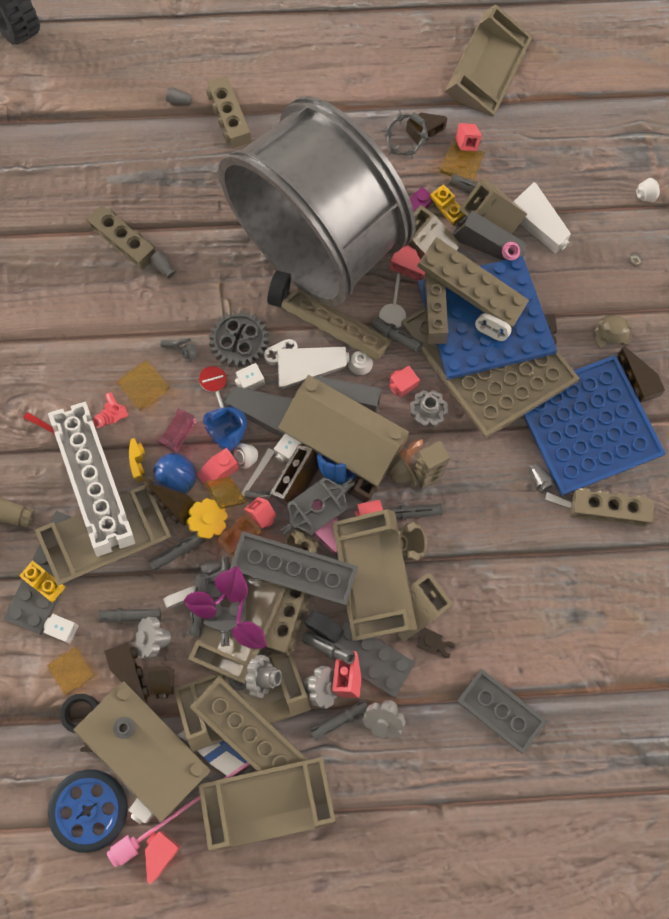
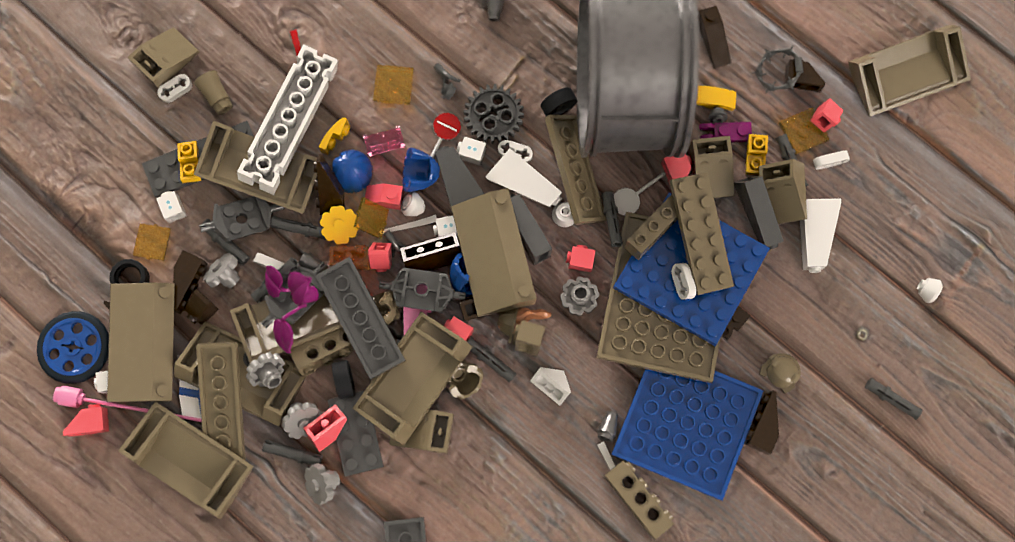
camera: 45 degrees right, 5 degrees up
(111, 414) = (350, 85): coral piece -> none
(130, 570) = (255, 210): none -> dark grey plate
(130, 727) = (147, 315): dark grey plate -> none
(334, 650) = (332, 402): dark grey pin -> none
(431, 642) = (409, 465): dark brown plate -> none
(473, 487) = (552, 383): none -> white slope
(499, 164) = (831, 160): none -> white beam
(516, 251) = (762, 242): bright pink plate -> none

